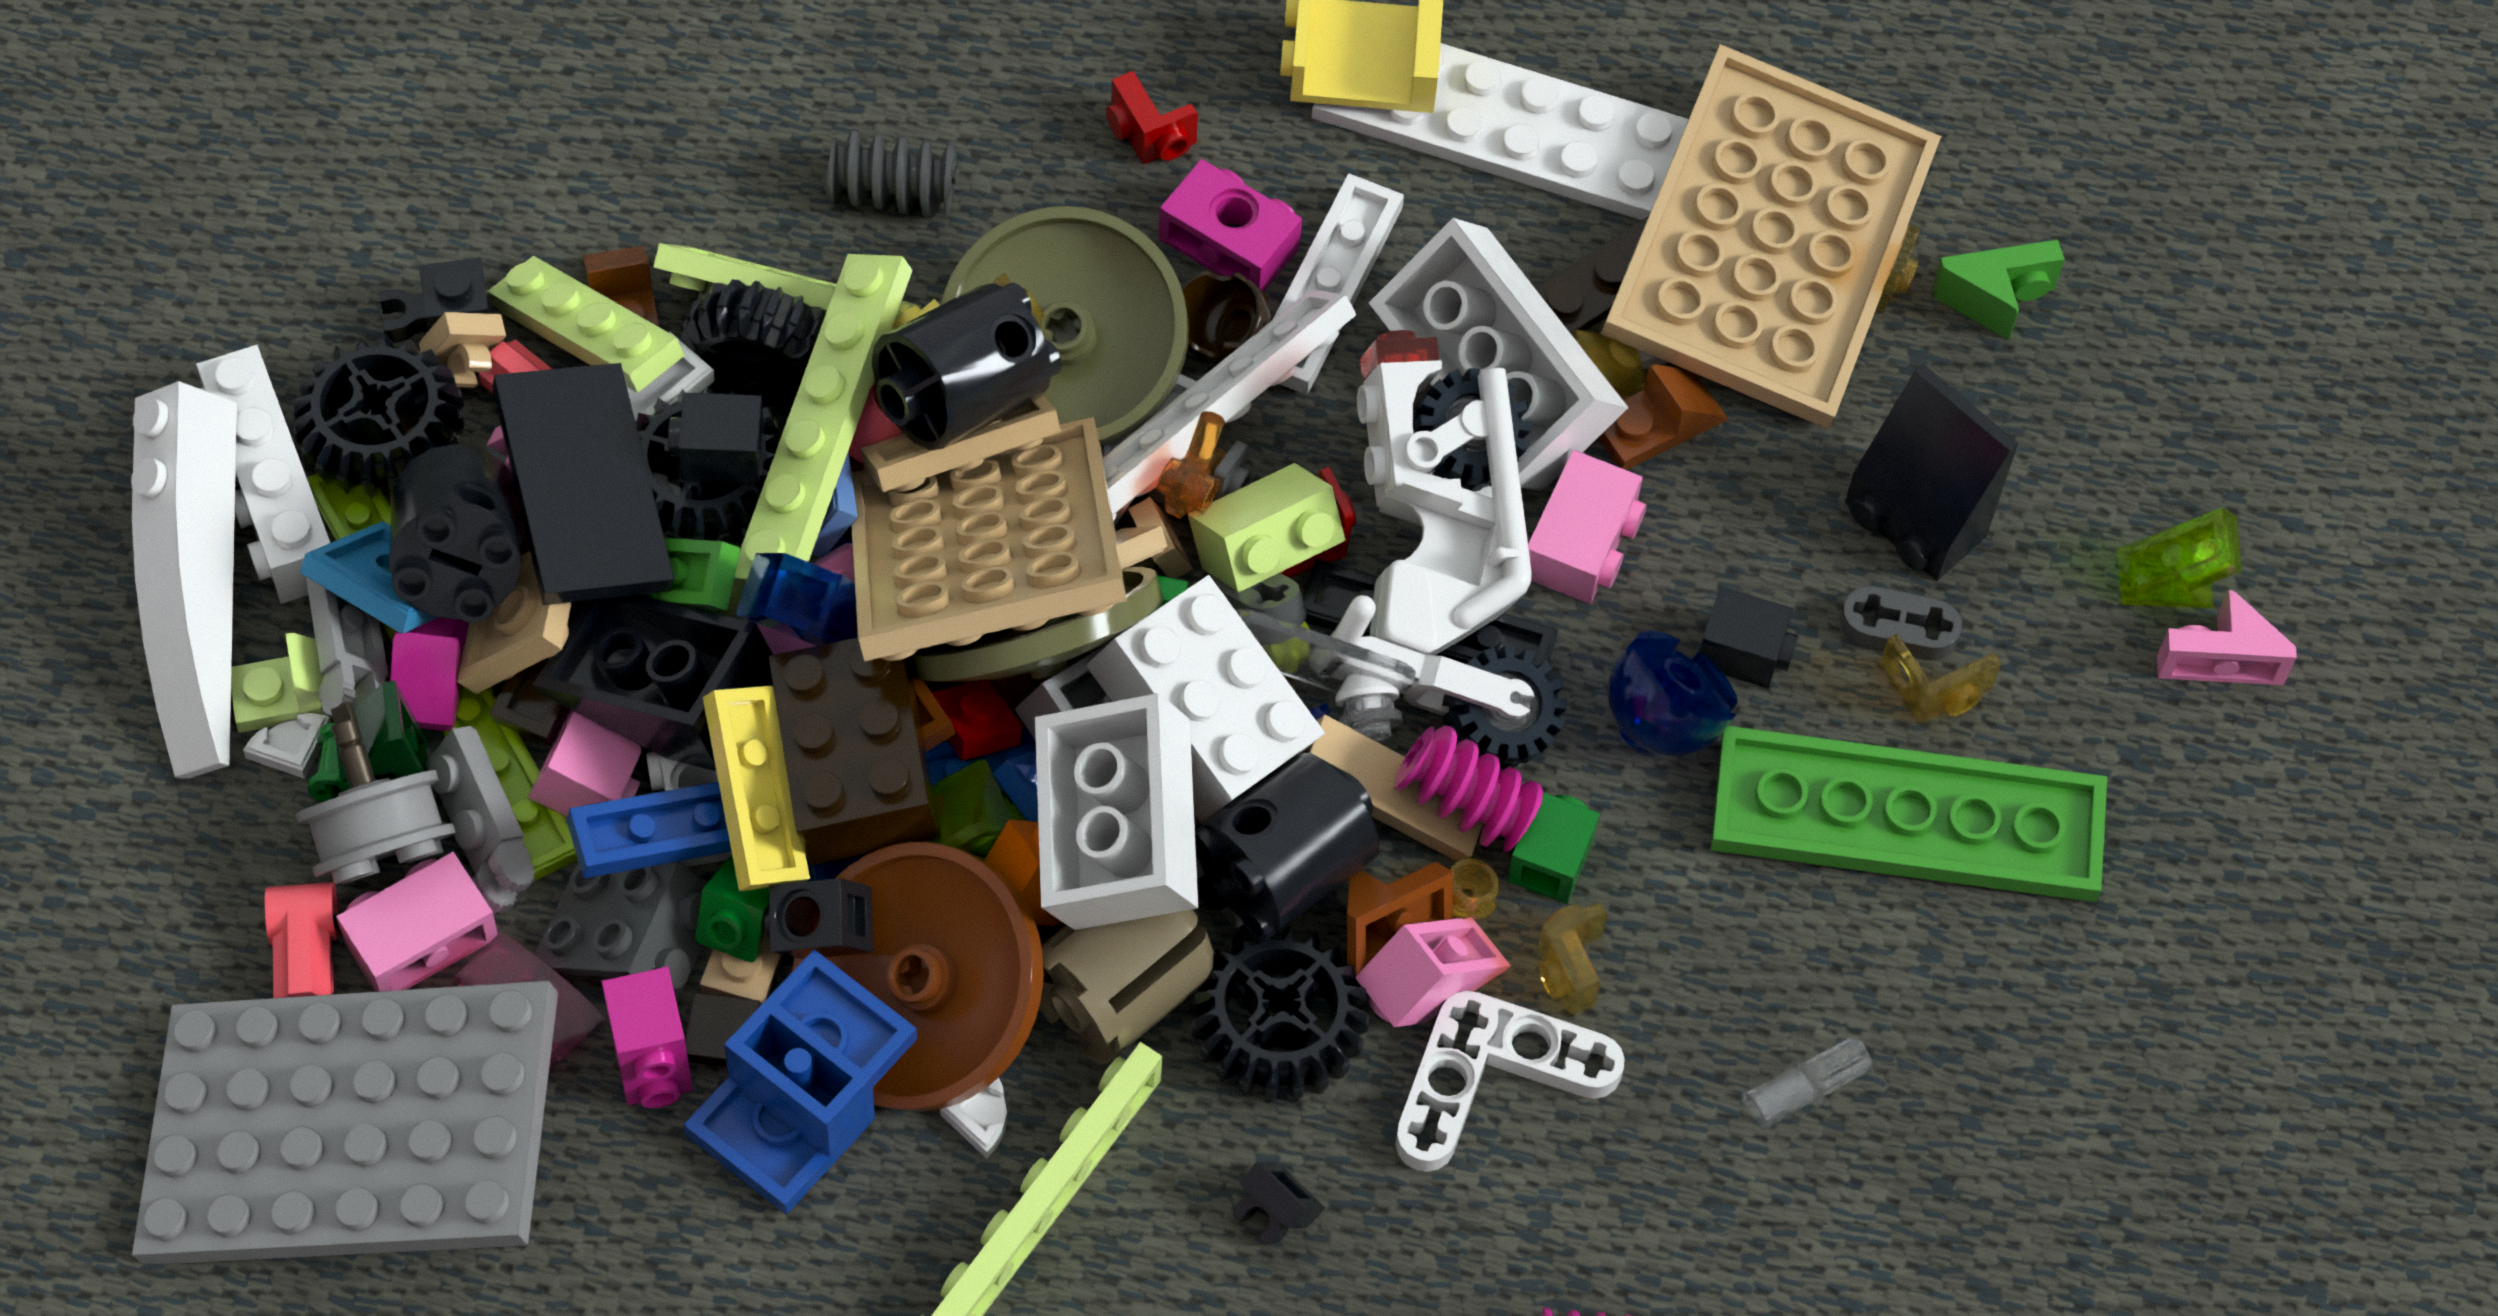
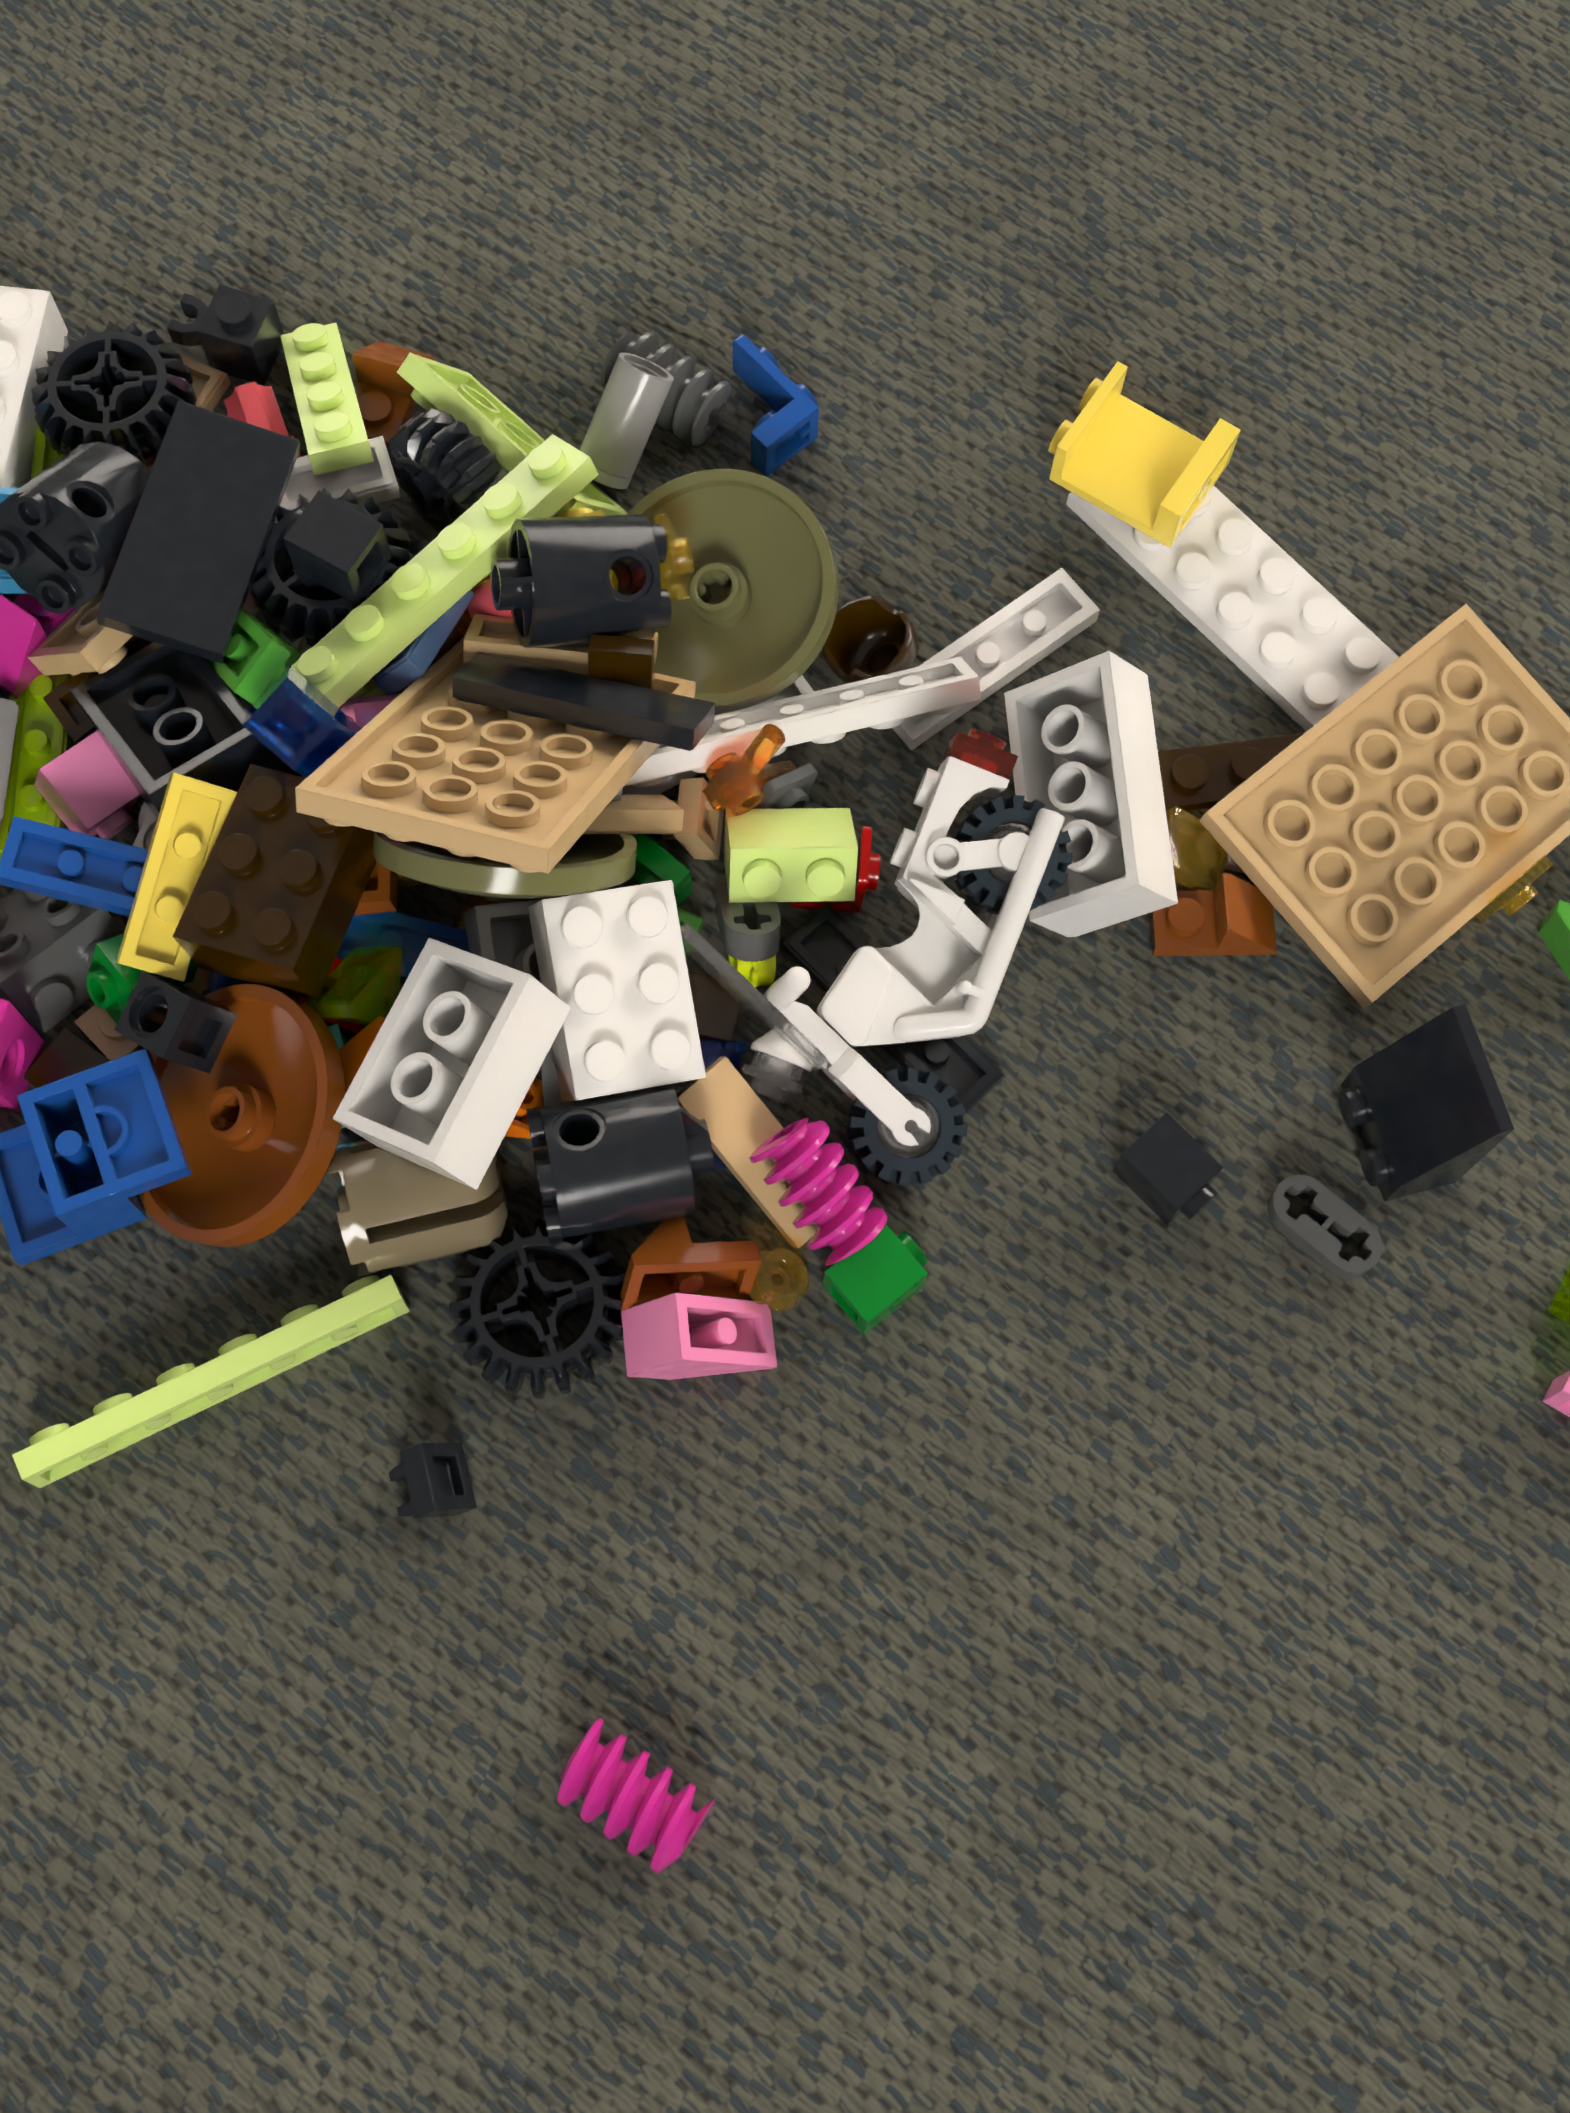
camera: 30 degrees right, 10 degrees up
(465, 343) = (221, 369): tan tile -> none
(880, 205) = (625, 418): none -> light grey pin
(979, 719) = (429, 913): red bracket -> none
(980, 1118) = (236, 1267): white tile -> none
(1017, 139) = (795, 409): none -> blue bracket
(1023, 469) = (584, 701): none -> black tile
(1037, 427) = (622, 659): none -> dark brown tile
(1149, 133) = (915, 458): red bracket -> none
(1213, 197) = (930, 599): dark pink brick -> none
(1494, 1048) = (715, 1438): white beam -> none
(1565, 965) = (816, 1401): clear yellow bracket -> none
(1583, 527) = (1080, 992): bright pink brick -> none
(1668, 699) = (1061, 1192): clear blue cylinder -> none
(1807, 1082) = (978, 1625): clear axle -> none
(1910, 813) = (1228, 1418): bright green plate -> none
(1951, 693) = (1331, 1322): clear yellow bracket -> none

